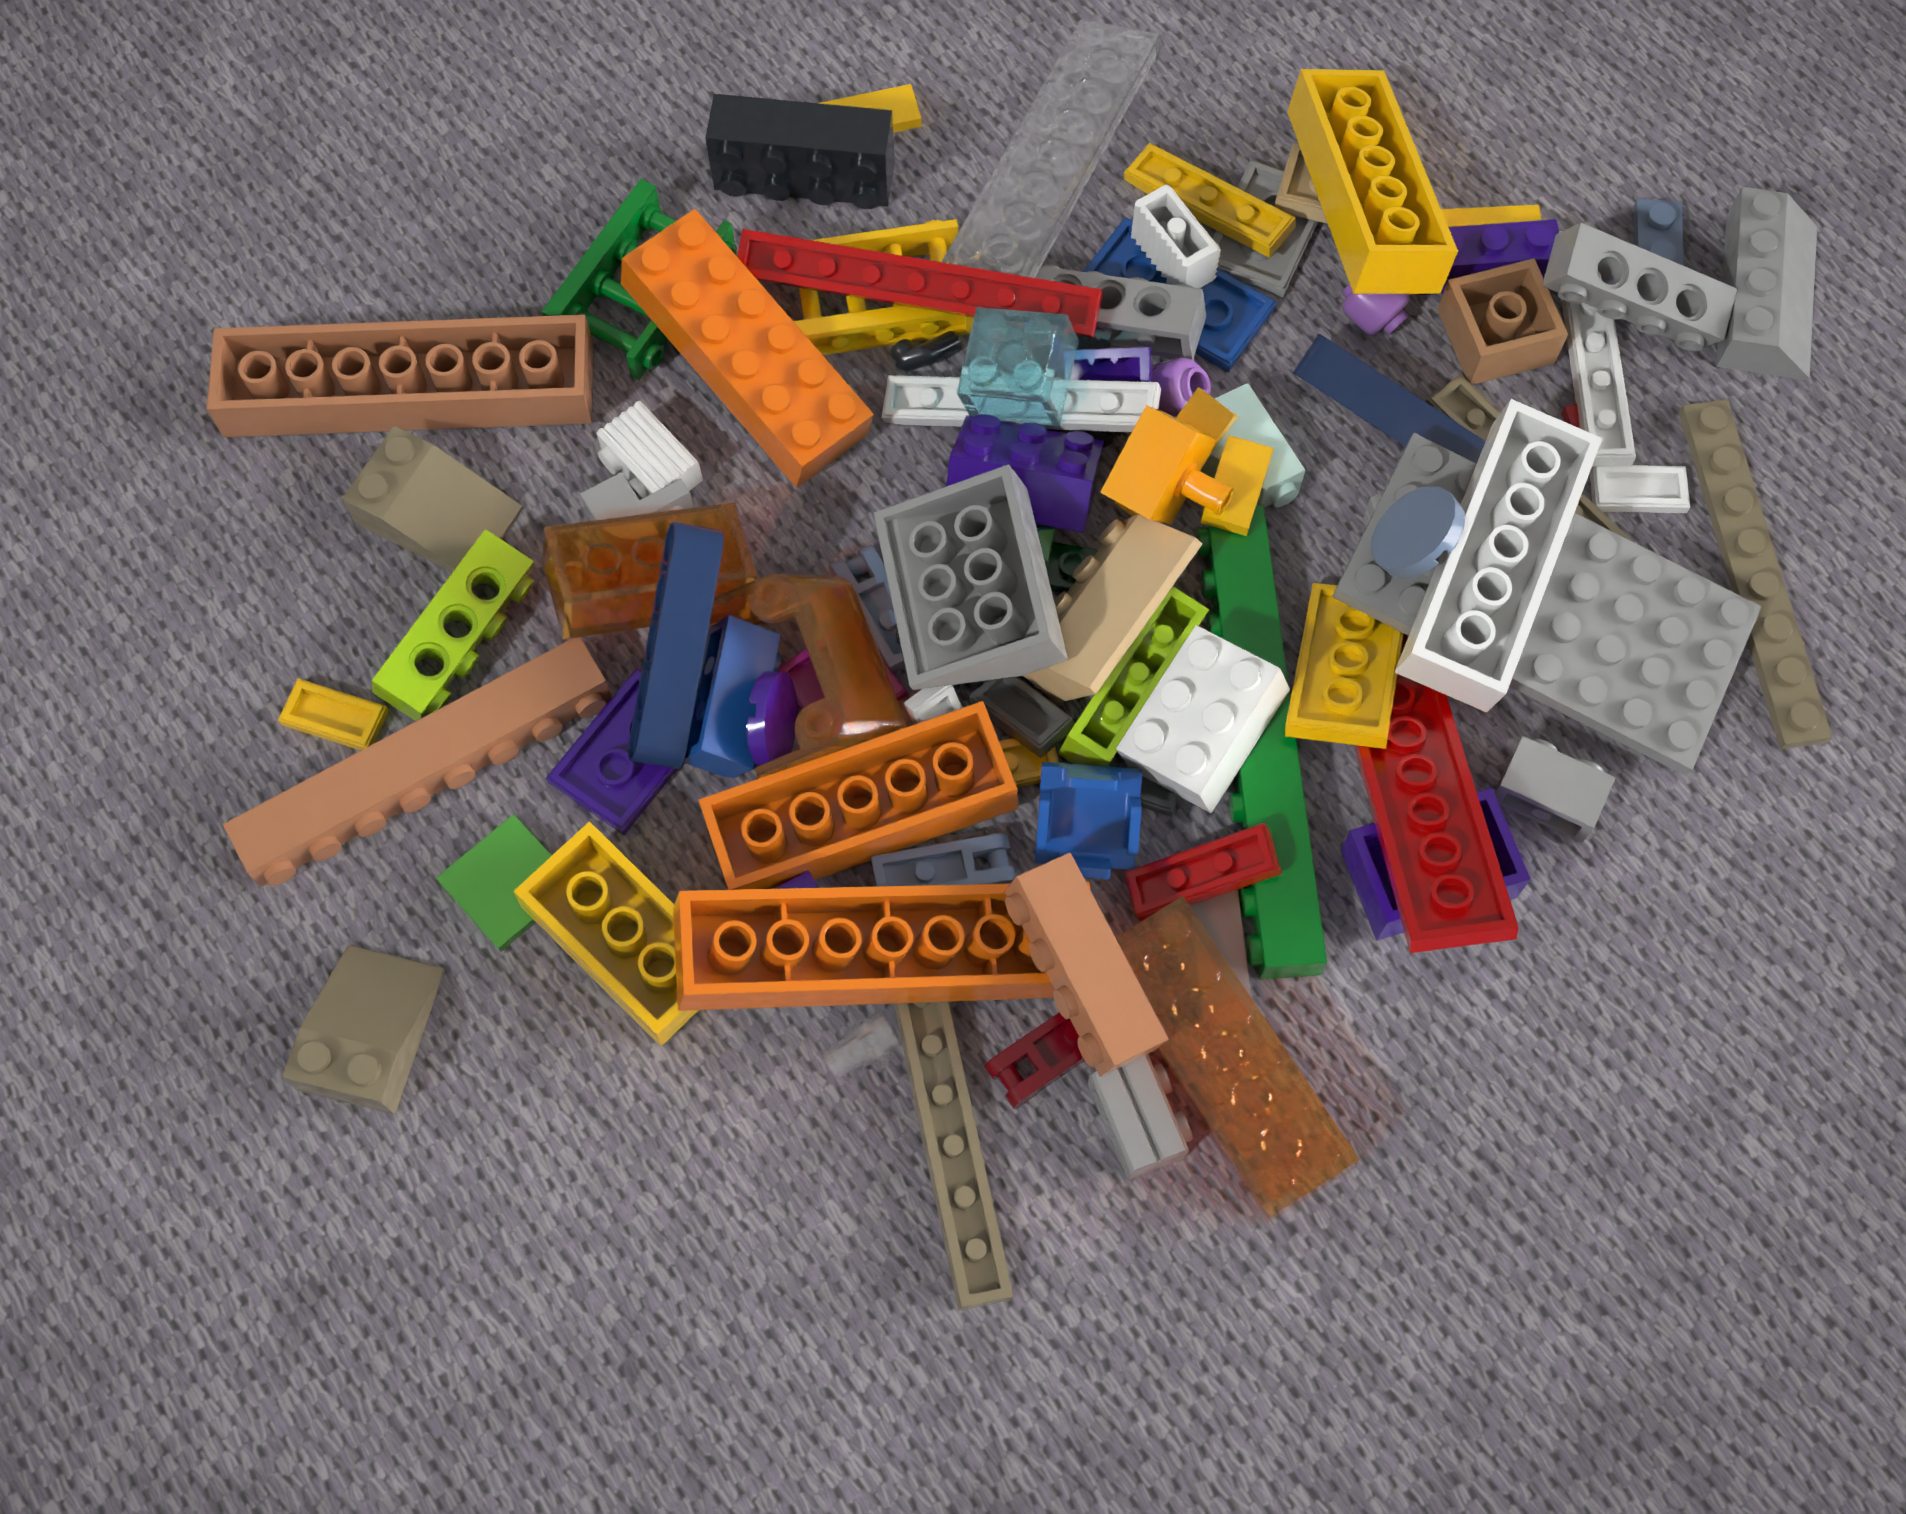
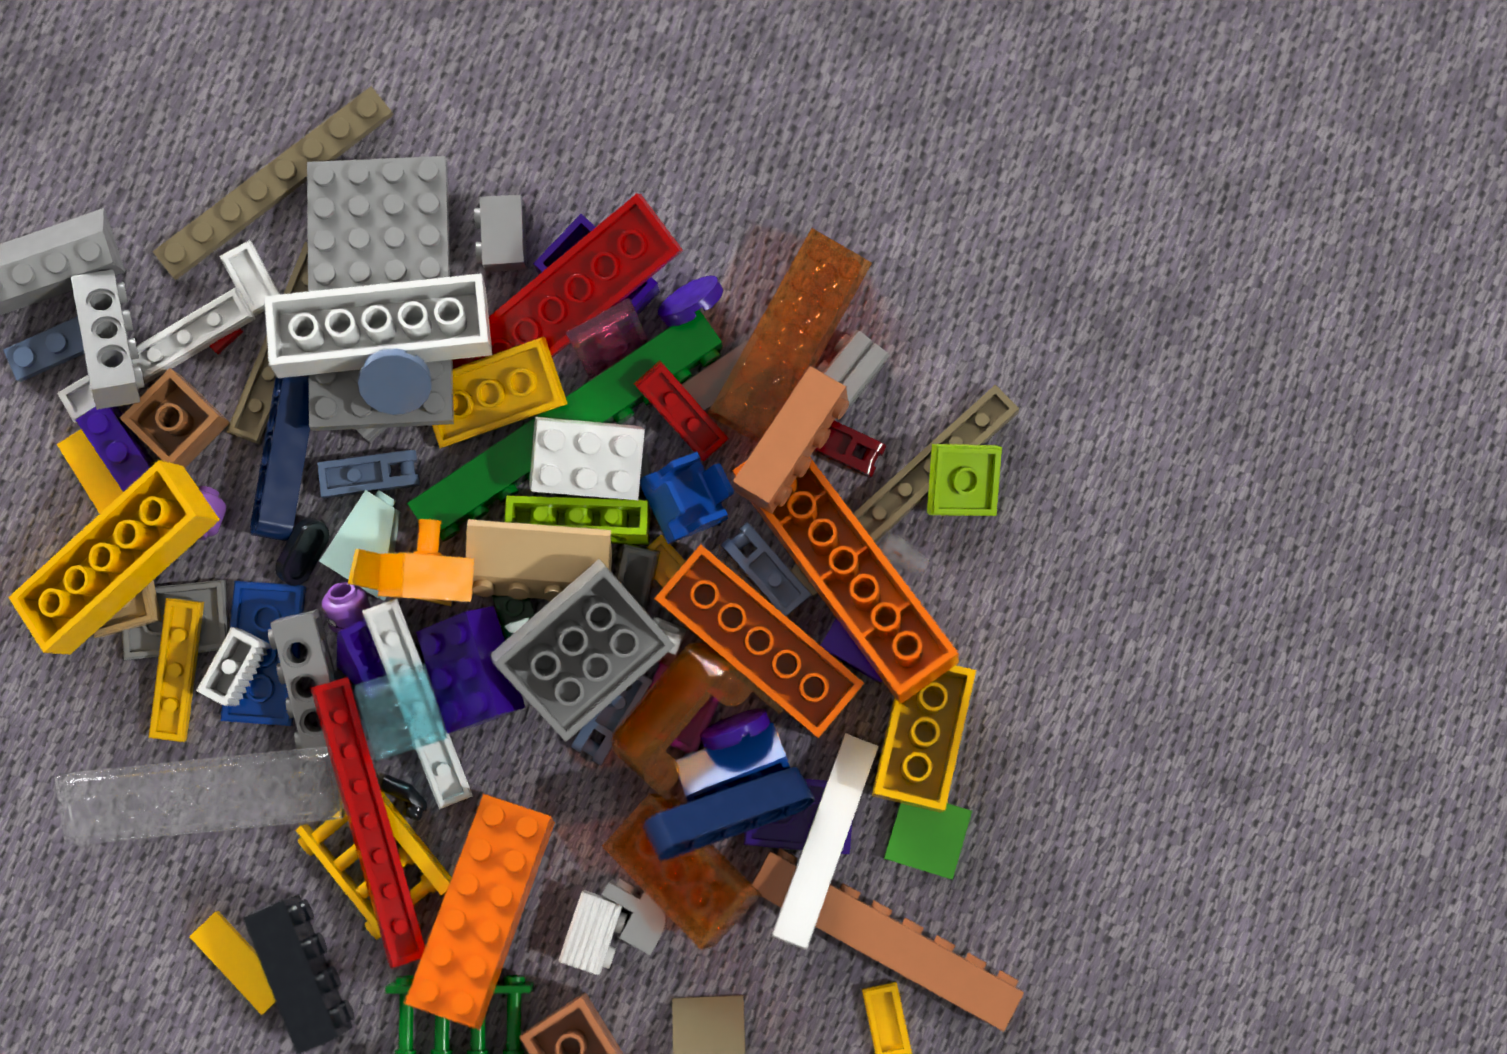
camera: 120 degrees left, 15 degrees up
(364, 1030) = (1067, 857): dark tan slope -> none
(486, 562) = (732, 990): lime brick -> none
(577, 748) = (825, 841): none -> white tile
(909, 1176) = (964, 480): none -> lime tile
(1244, 469) = (399, 524): yellow tile -> none
(1271, 380) = (302, 551): none -> black tile
(1325, 492) = (367, 473): none -> sand blue plate
(1344, 820) = (607, 338): none -> clear pink tile
(1344, 964) = (682, 303): none -> dark purple tile

